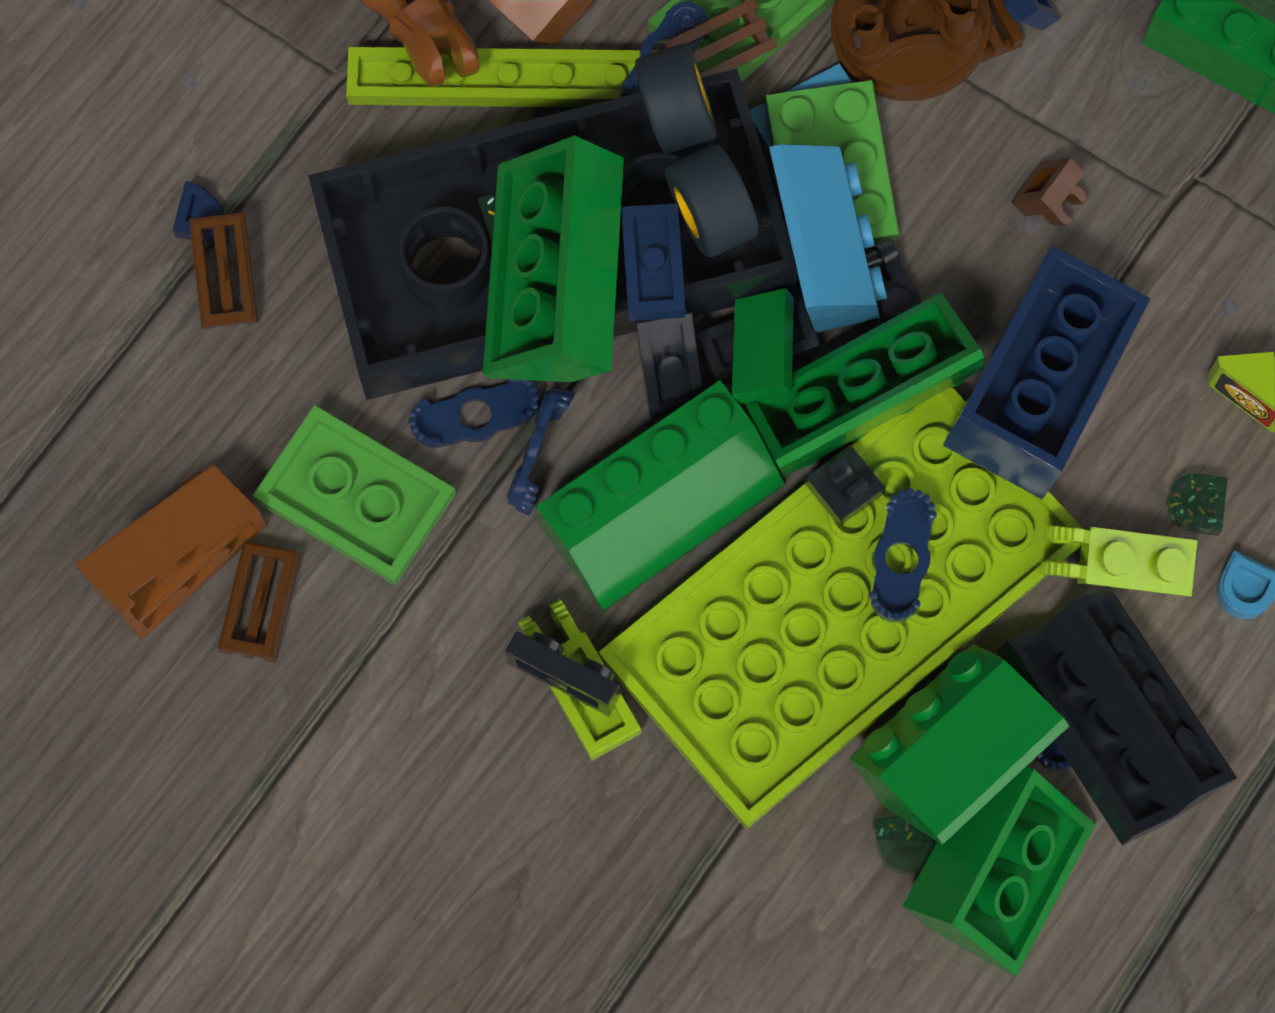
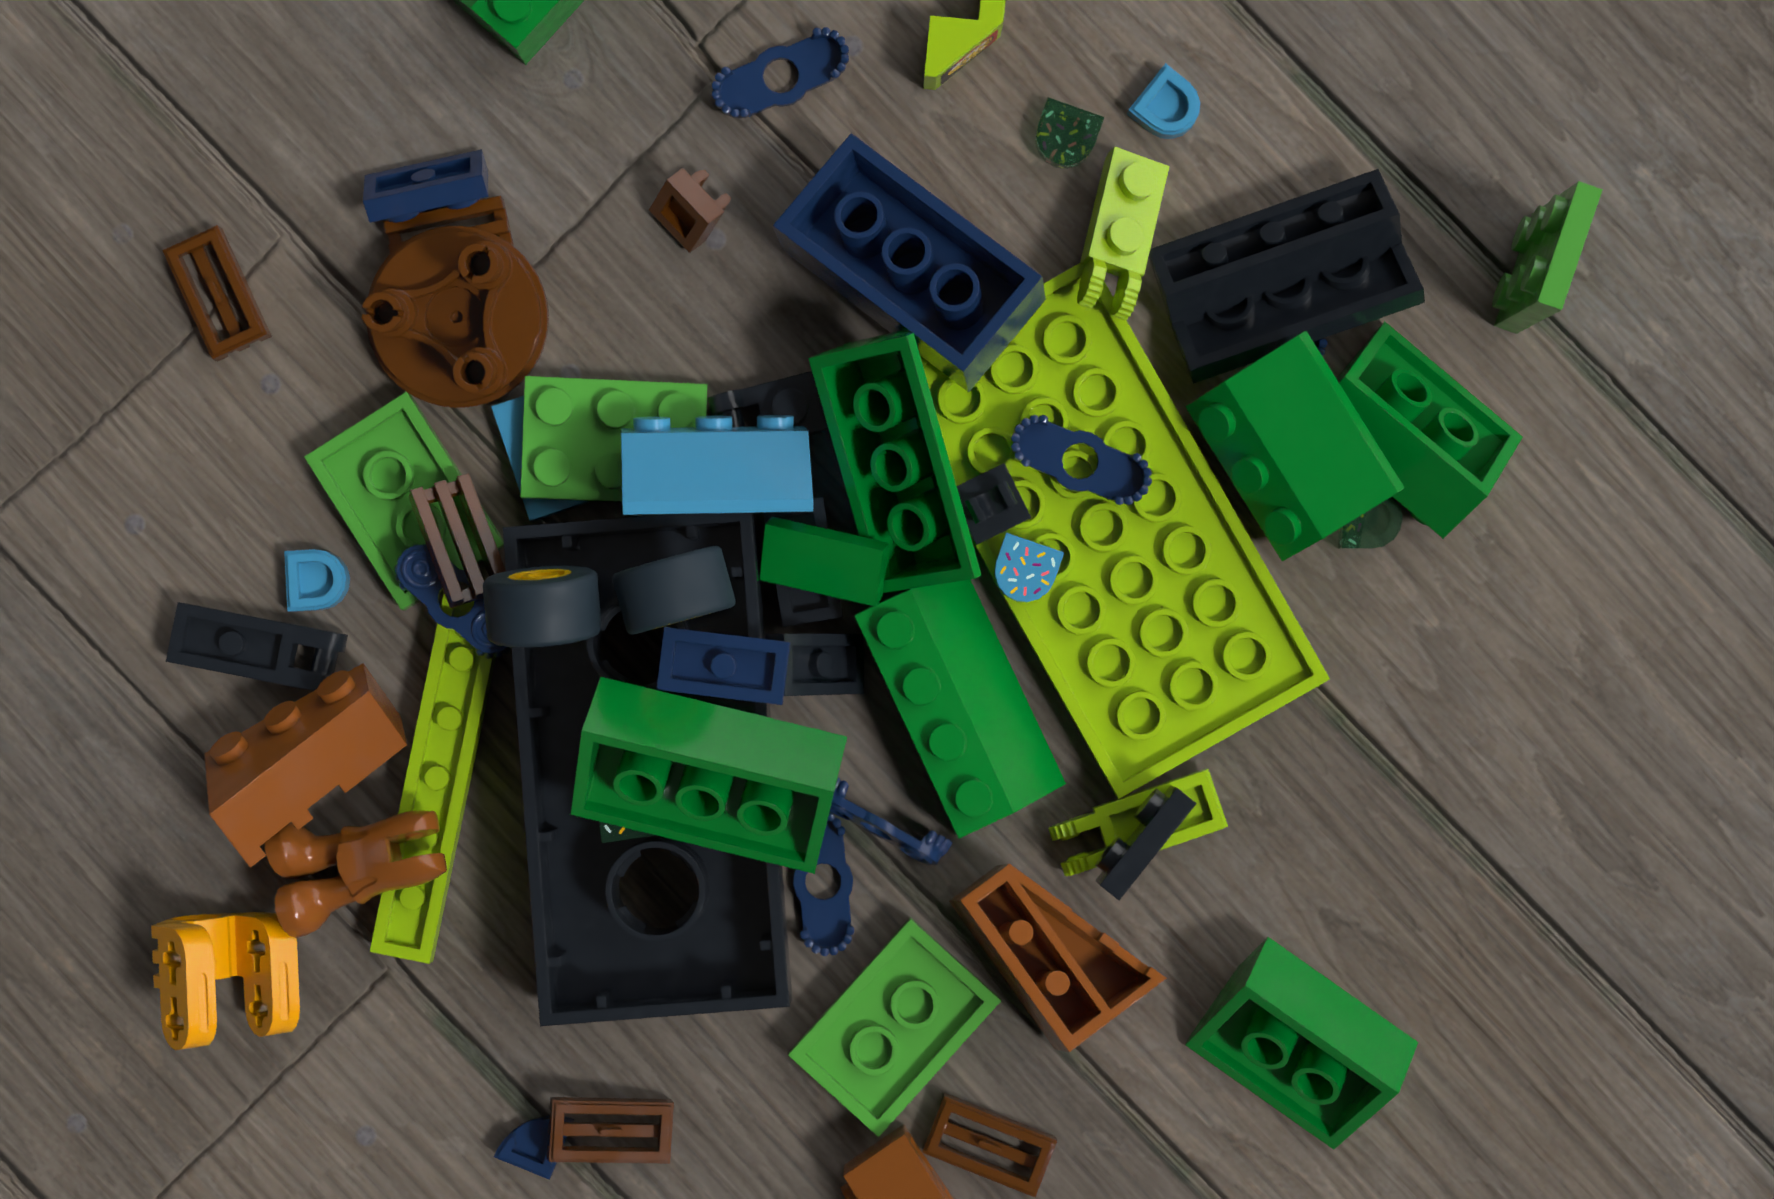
camera: 80 degrees left, 15 degrees up
(399, 864) = (1303, 1044): none -> green slope
(440, 614) = (1051, 957): none -> dark orange wedge
(792, 527) = (1025, 568): none -> dark azure tile
(1164, 224) = (818, 62): none -> dark blue piece
(1178, 937) = (1547, 258): none -> bright green plate

